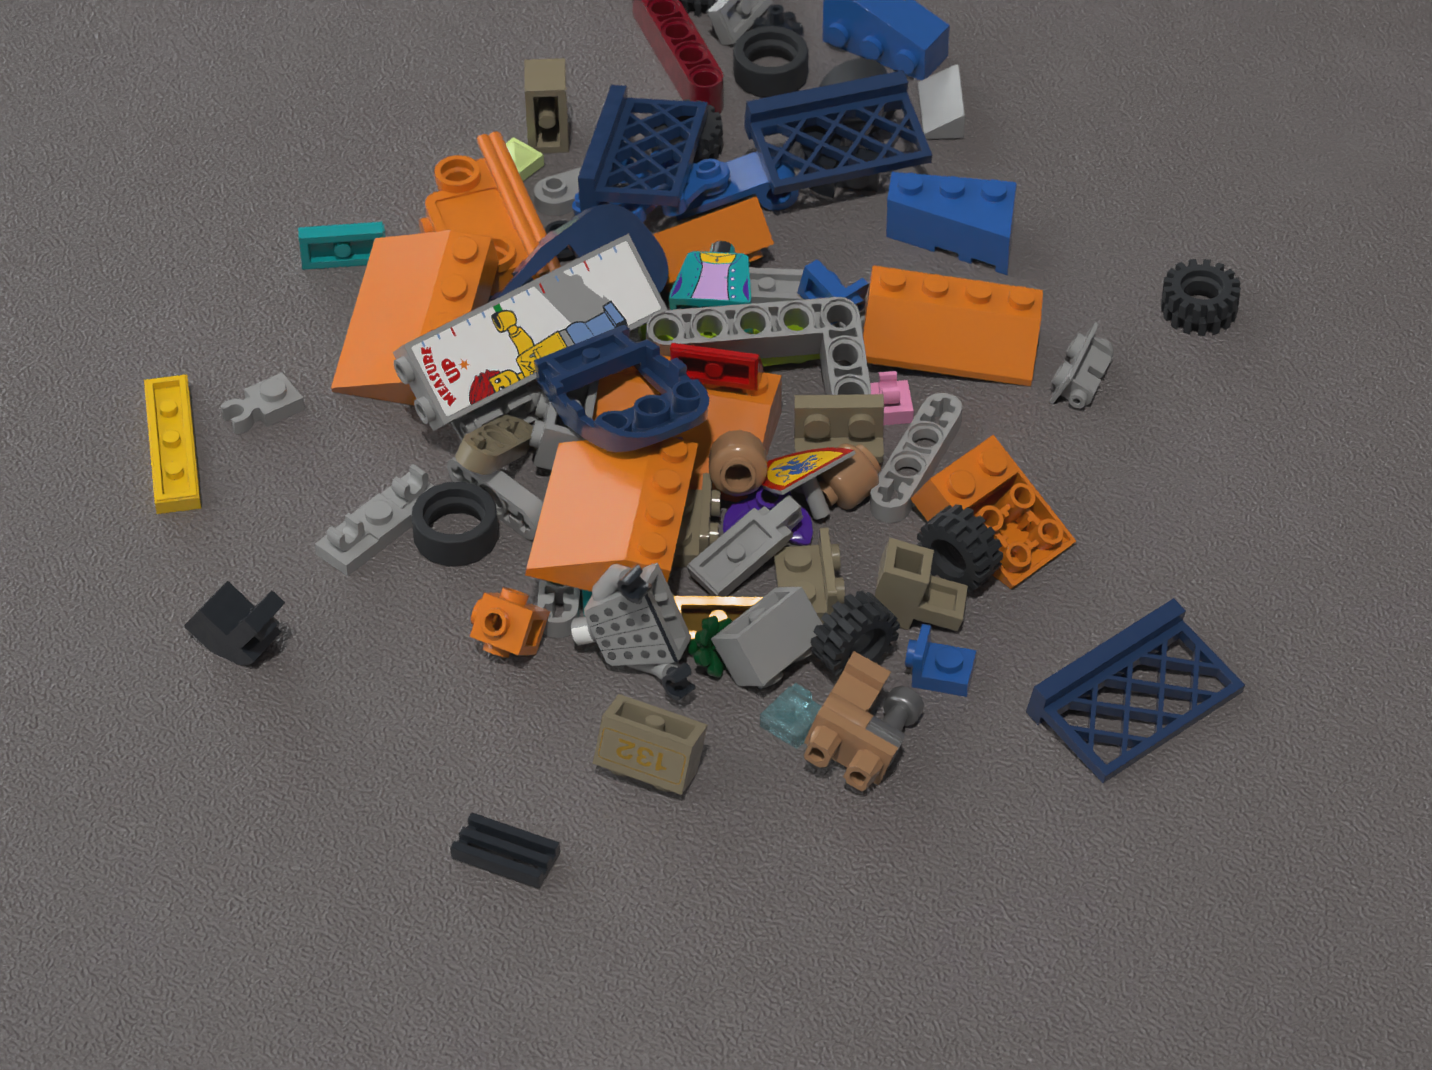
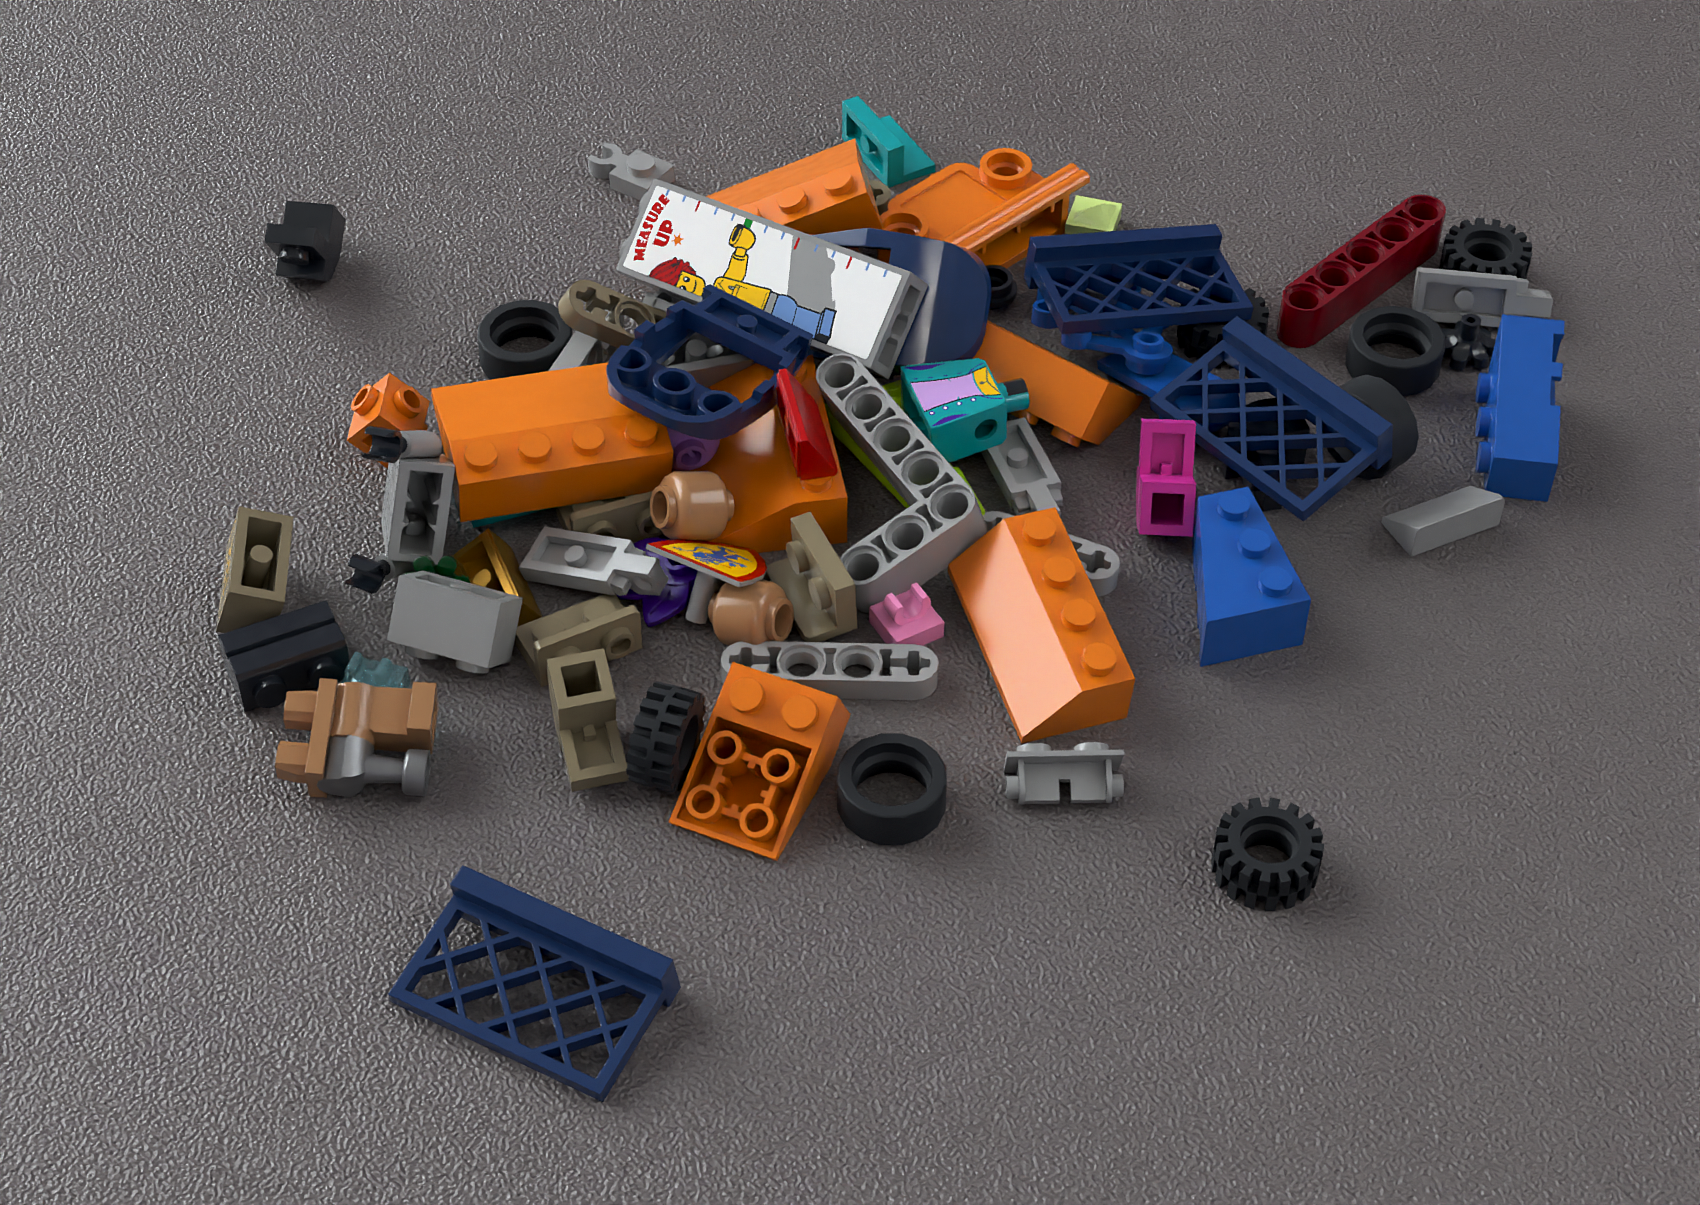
camera: 65 degrees right, 0 degrees up
(172, 444) = (546, 135): yellow tile -> none
(373, 524) = (480, 291): light grey plate -> none
(509, 844) = (77, 525): black tile -> none
(546, 105) = (1163, 187): dark tan brick -> none
(742, 755) = (284, 655): none -> black brick
(822, 283) = (1011, 491): blue bracket -> none
(844, 224) = (1166, 478): none -> dark pink brick
(858, 626) = (483, 687): black tyre -> none
(939, 665) = (501, 785): blue bracket -> none
(1061, 433) = (891, 755): none -> black tyre

